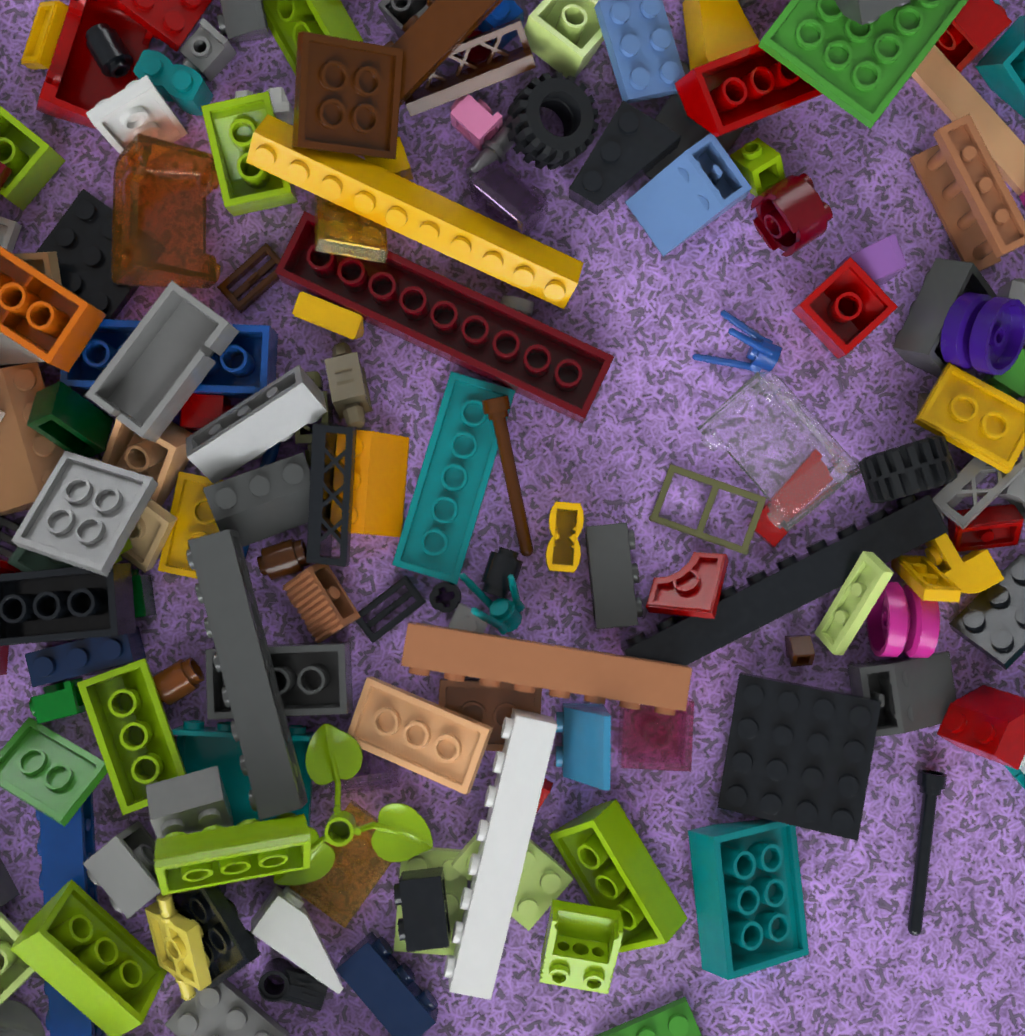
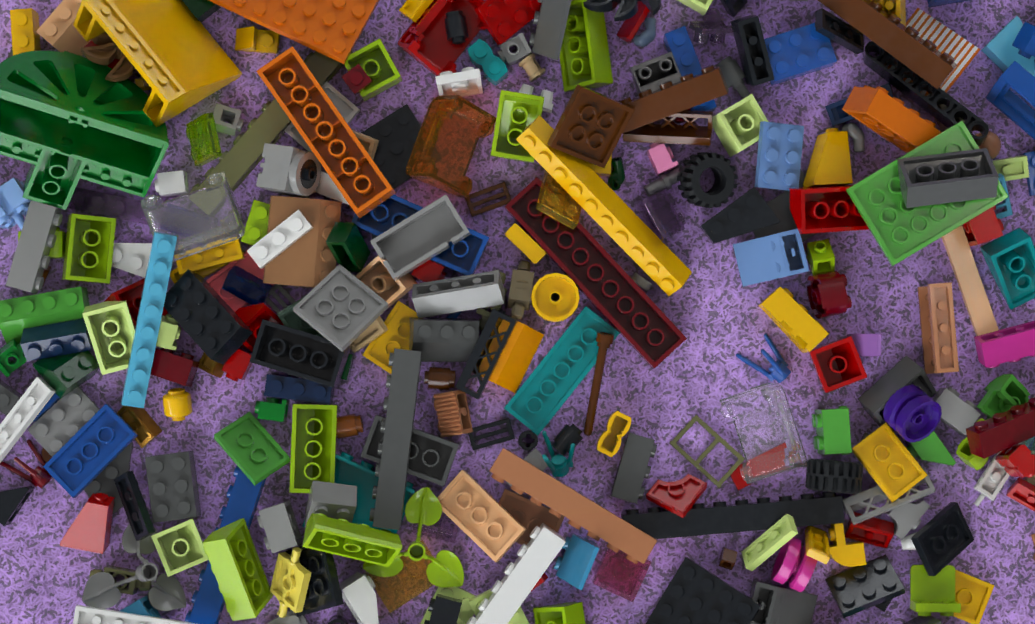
camera: 20 degrees right, 0 degrees up
(240, 67) = (532, 67): none -> tan bush
(406, 356) = (560, 285): none -> yellow wheel
(423, 169) = (617, 175): none -> dark green arm
(757, 272) = (793, 319): none -> yellow wedge
(877, 406) = (832, 431): none -> bright green brick

